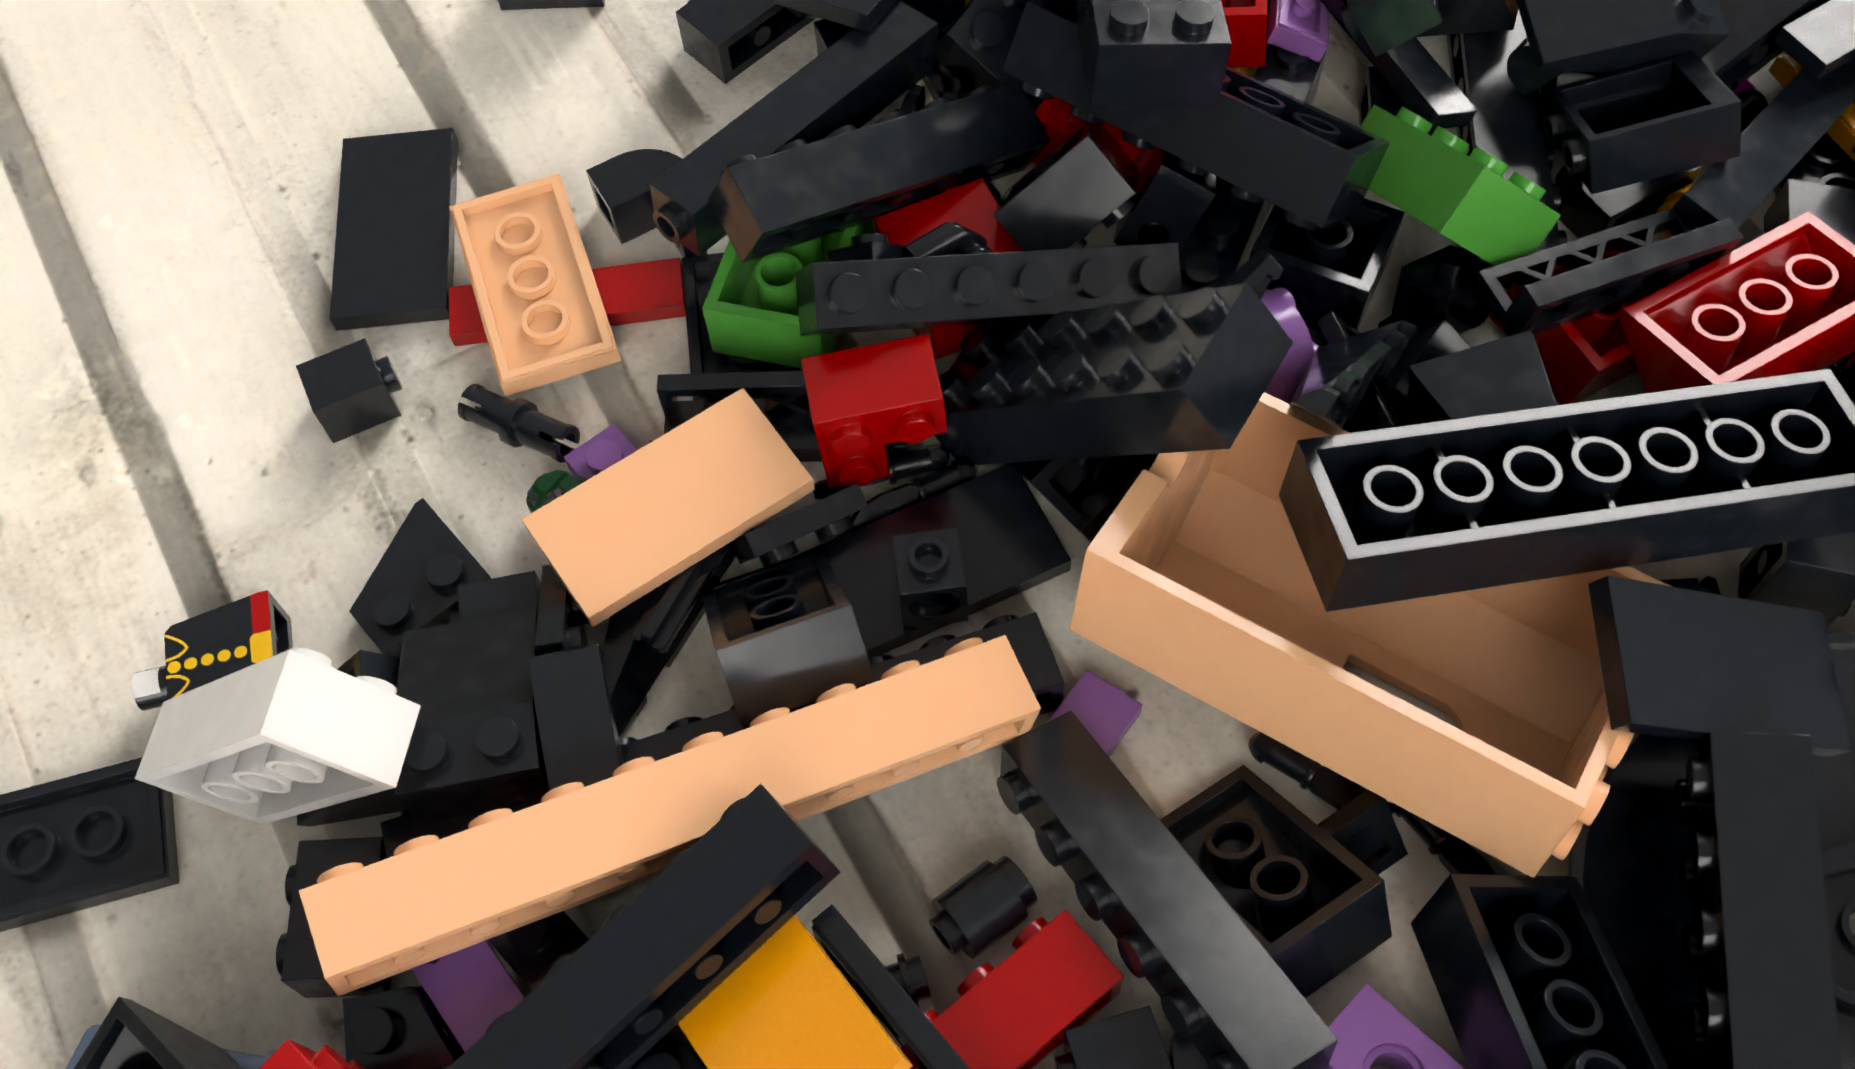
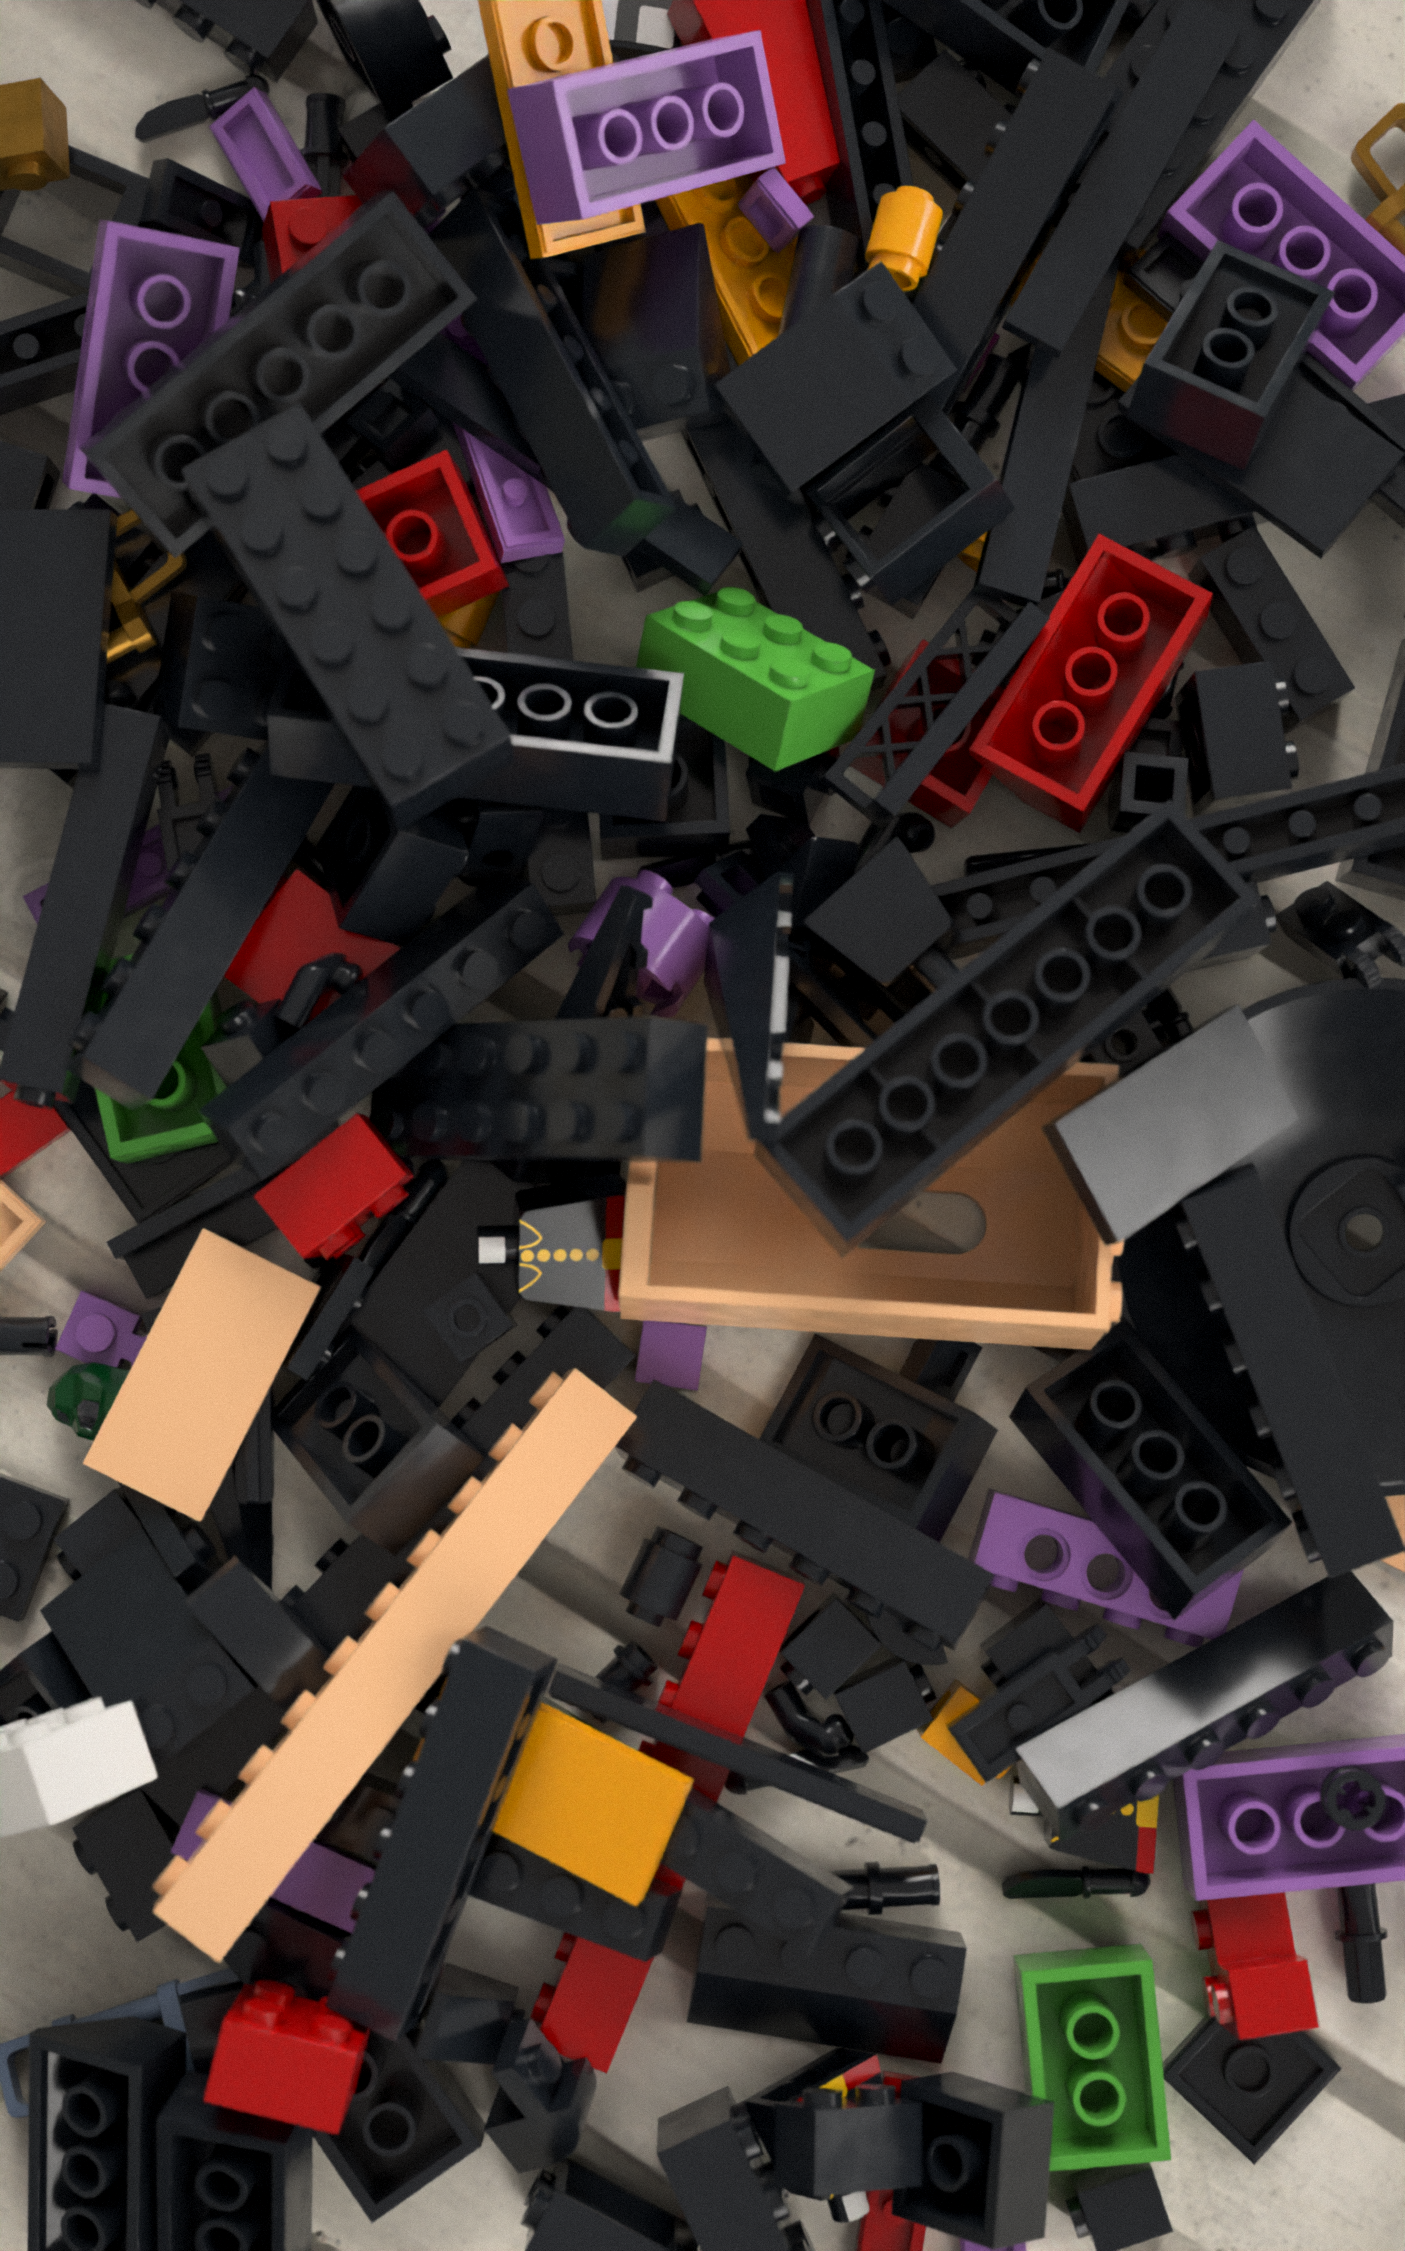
camera: 35 degrees left, 25 degrees up
(1037, 550) = (563, 1243): none -> black torso

